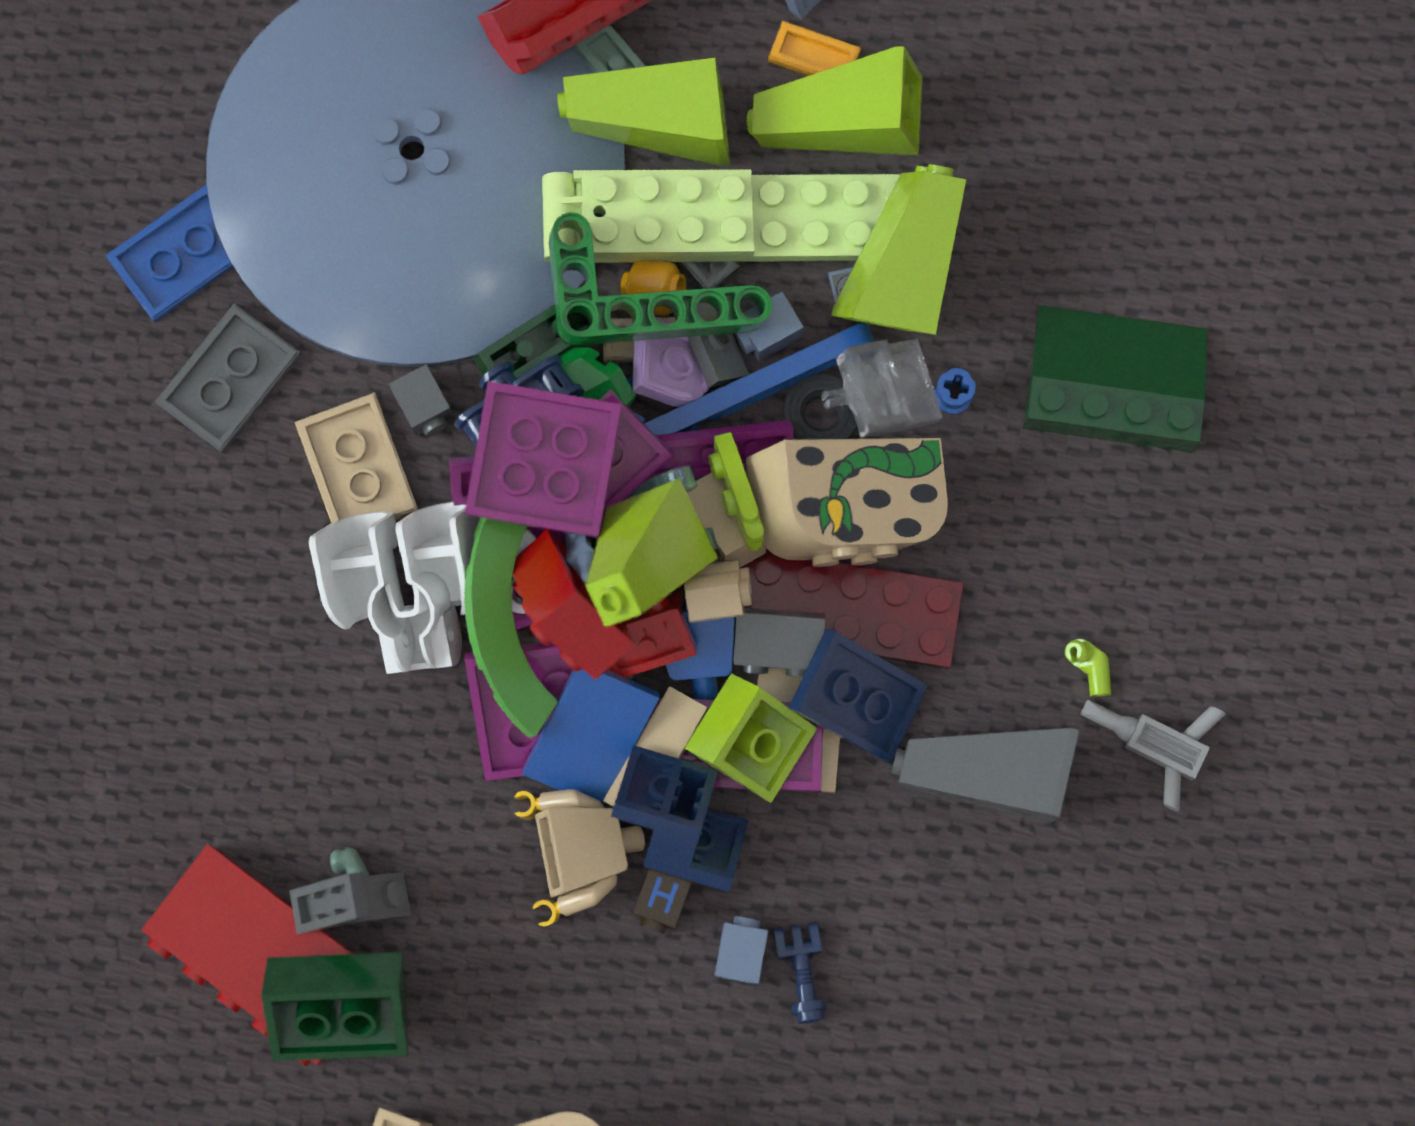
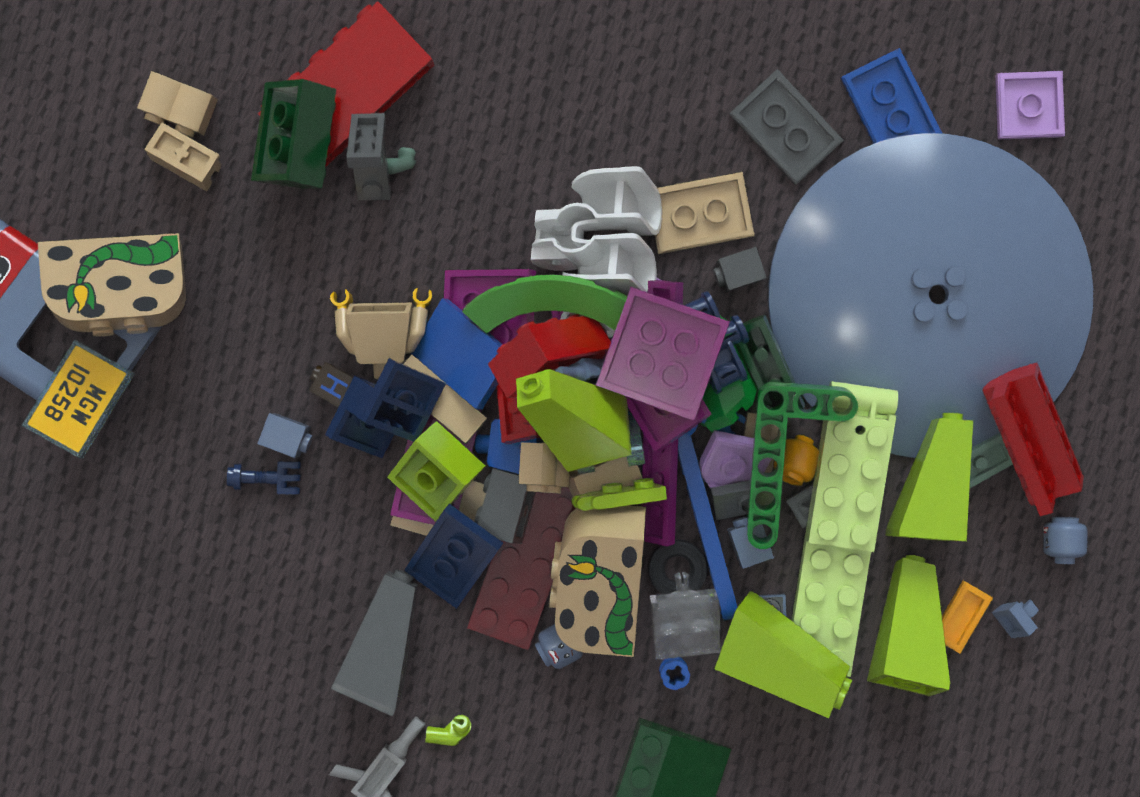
camera: 95 degrees right, 10 degrees up
(154, 84) = (1030, 105): none -> lavender tile
(951, 546) = (553, 649): none -> sand blue head

